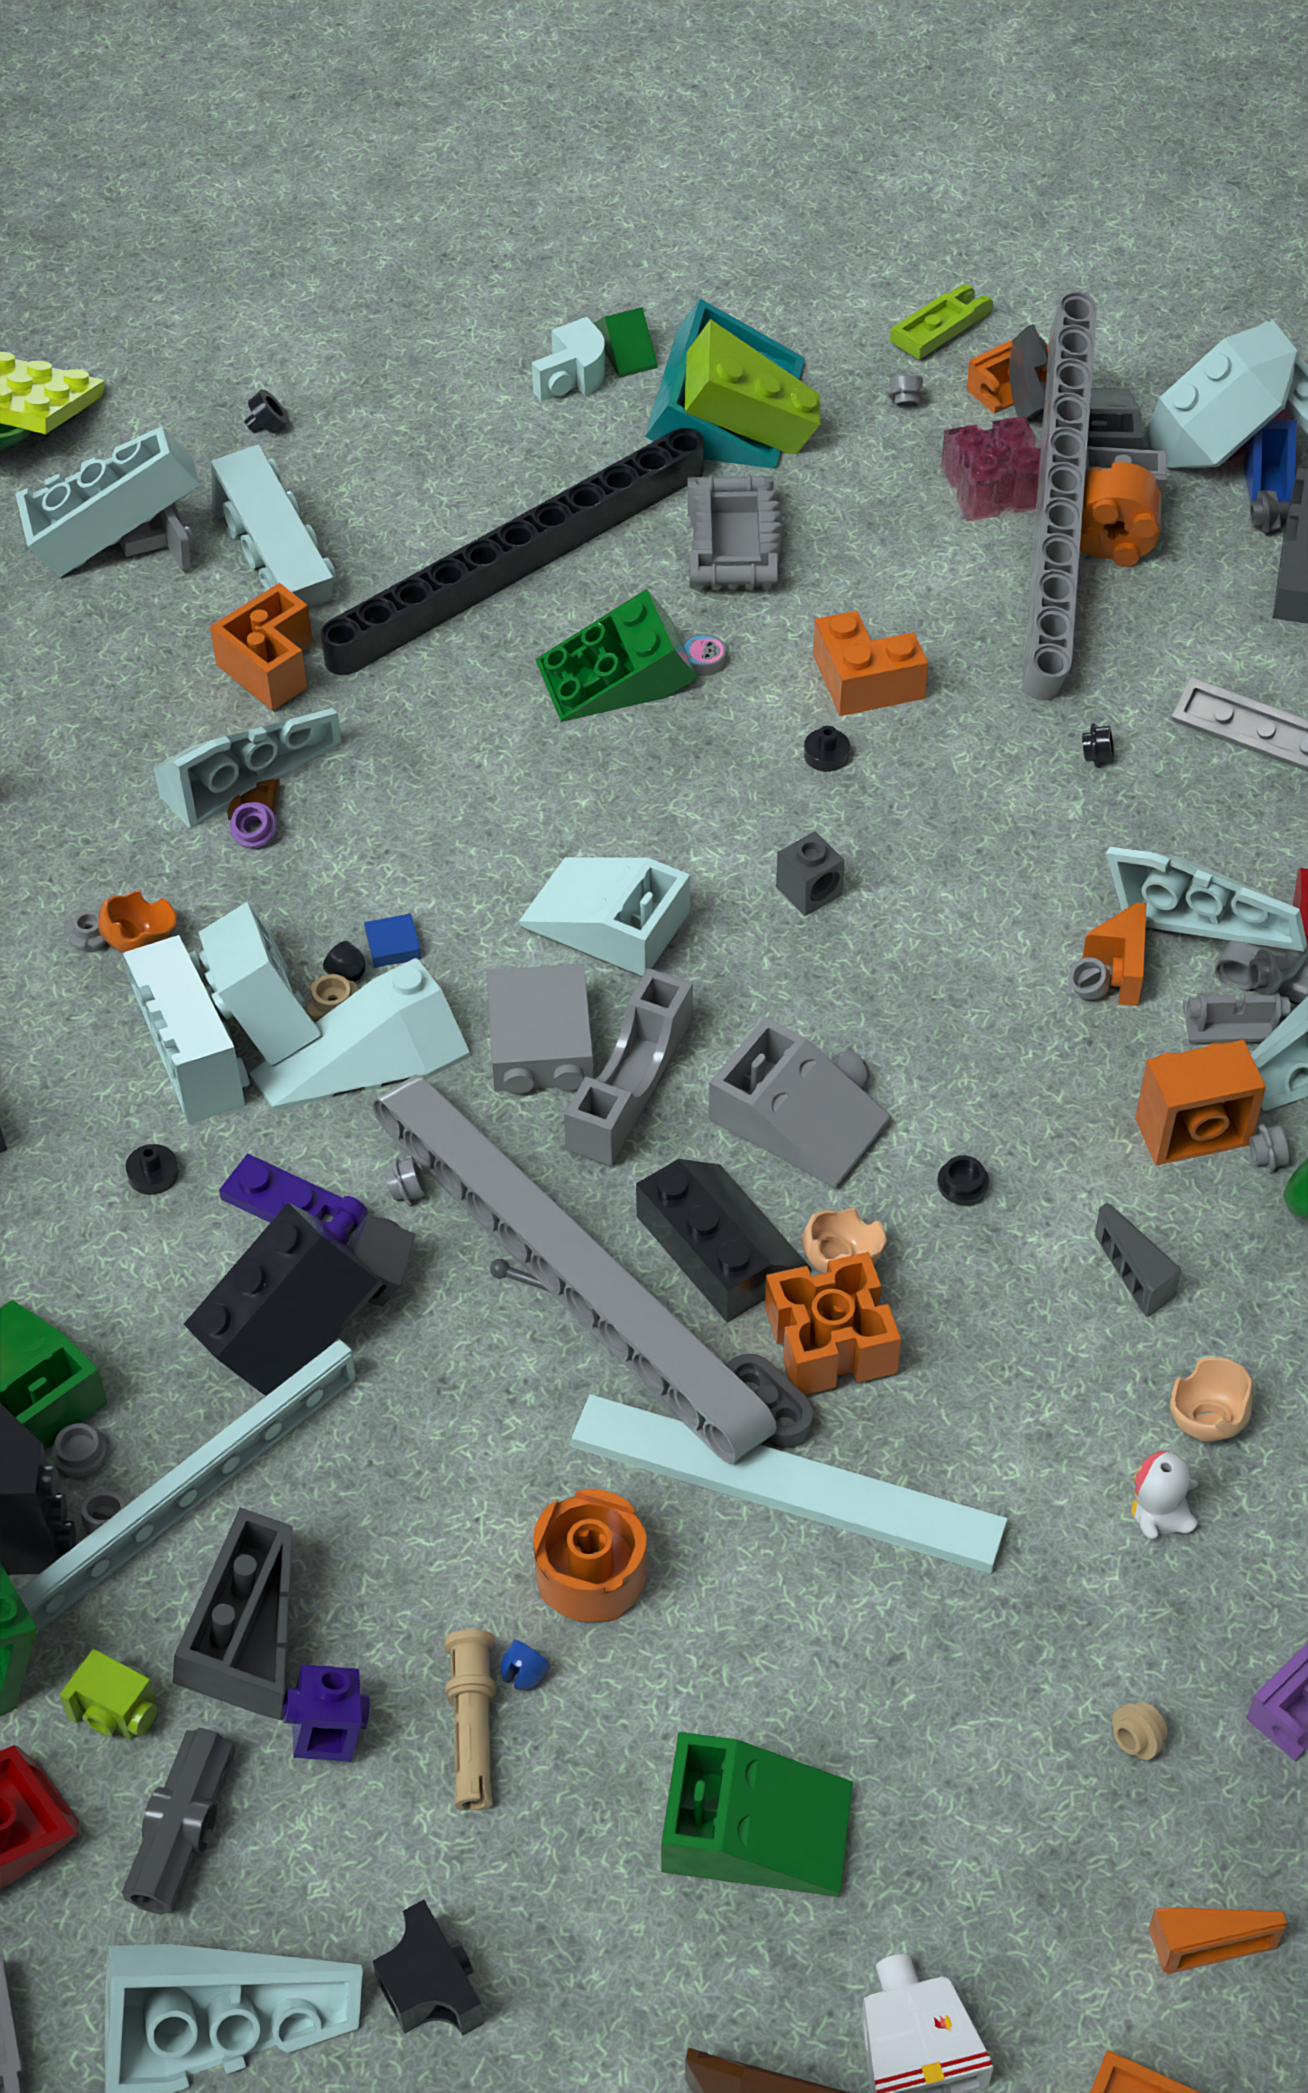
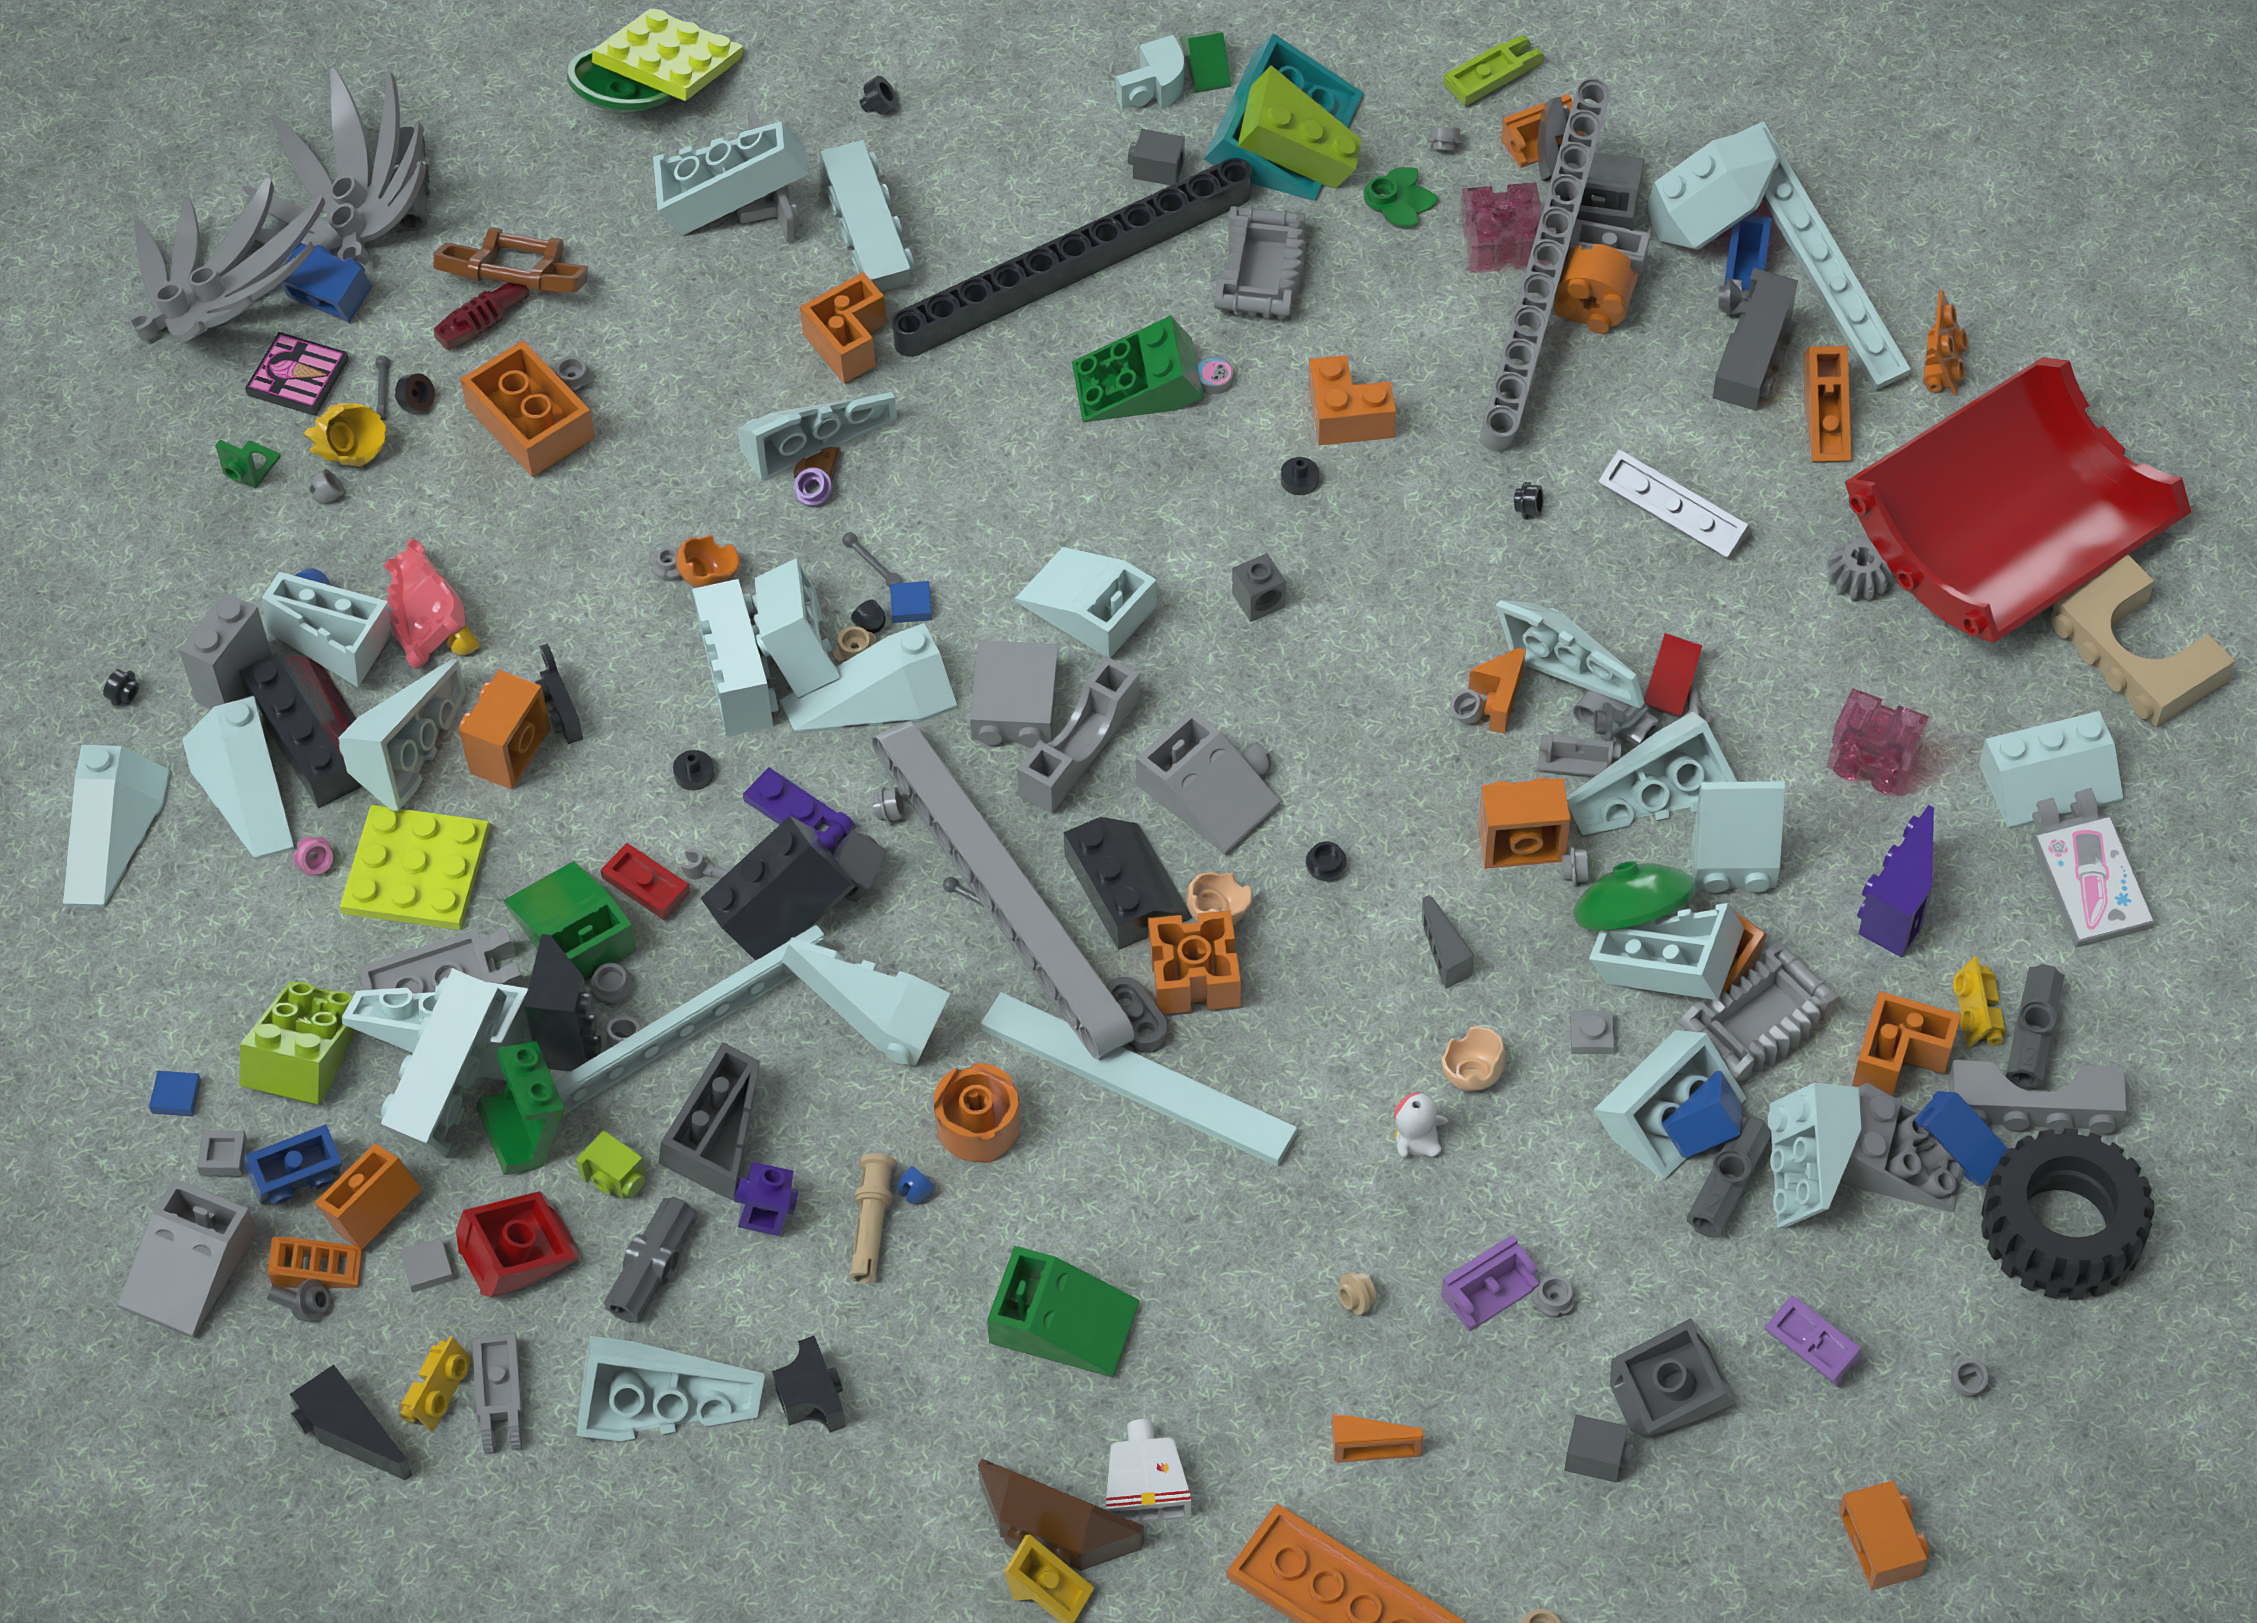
camera: 10 degrees right, 5 degrees up
(108, 1313) = (645, 881): none -> red plate
(177, 1288) = (700, 867): none -> light grey hand
(308, 880) = (850, 540): none -> dark grey hinge
(447, 1436) = (885, 1009): none -> light aqua wedge
(591, 439) = (1157, 157): none -> dark grey brick
(869, 453) = (1402, 196): none -> green plate

